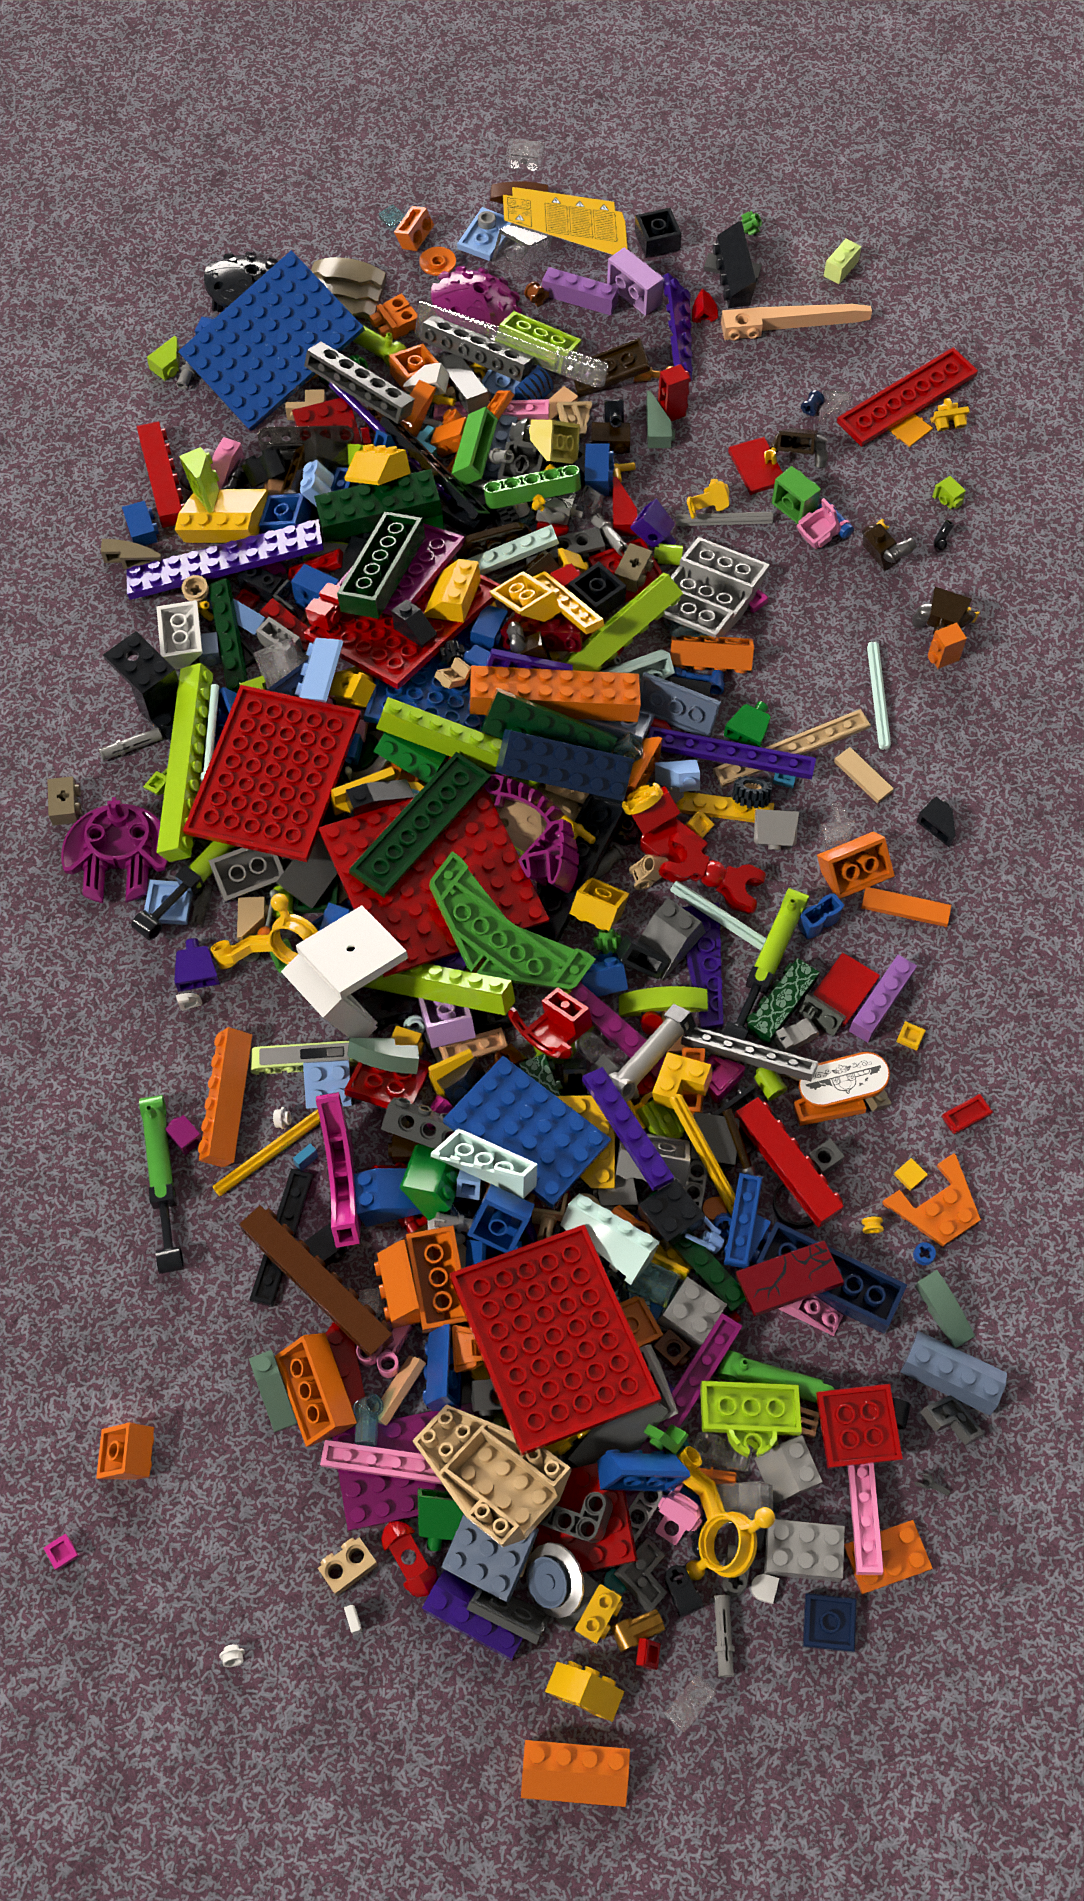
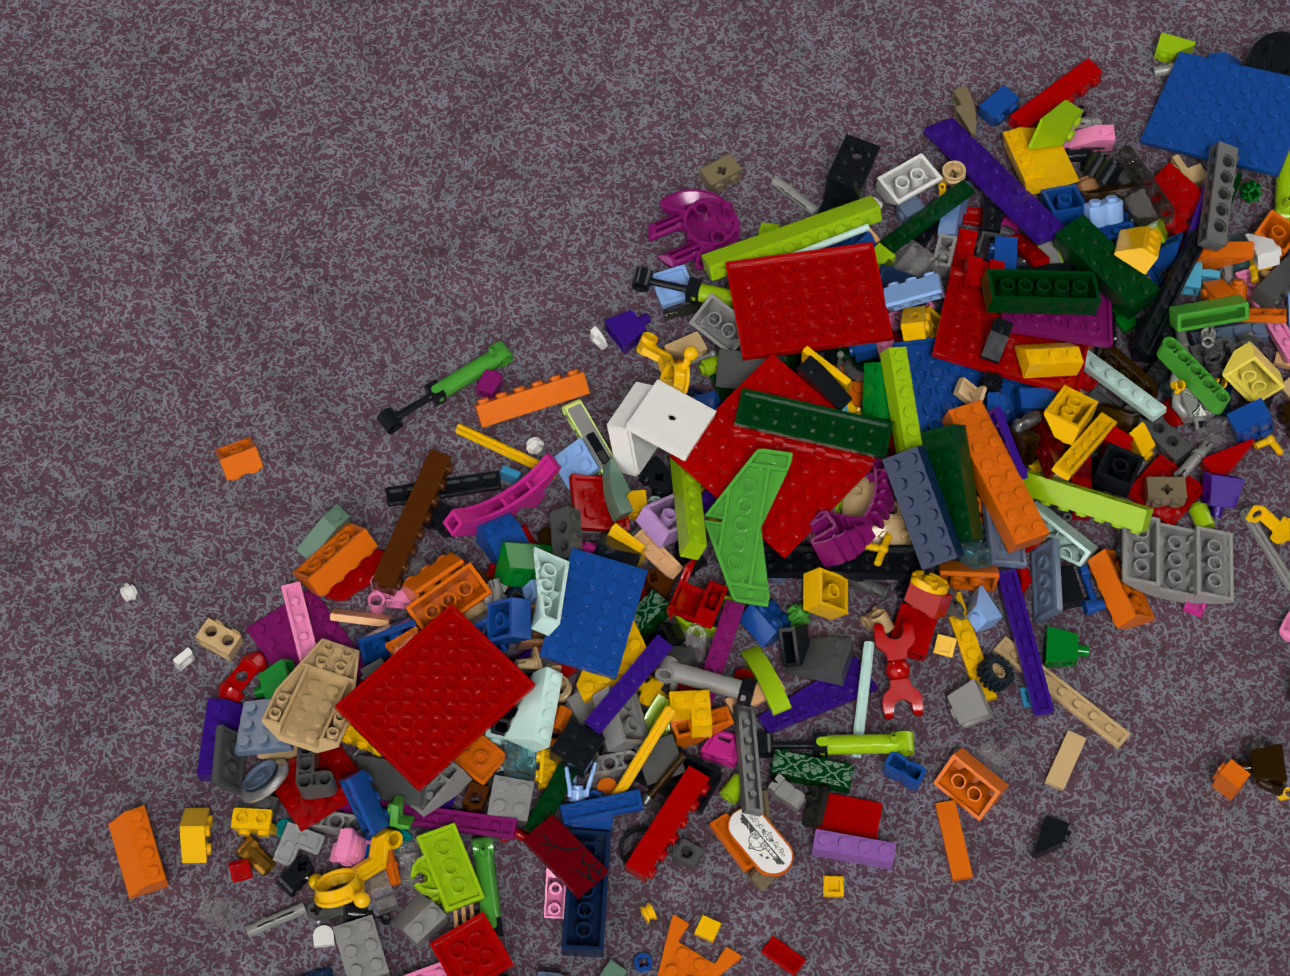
camera: 65 degrees right, 0 degrees up
(61, 1552) = (154, 450): dark pink plate -> none
(366, 1414) = (325, 604): clear light blue piece -> none
(879, 696) = (1154, 744): light aqua axle -> none

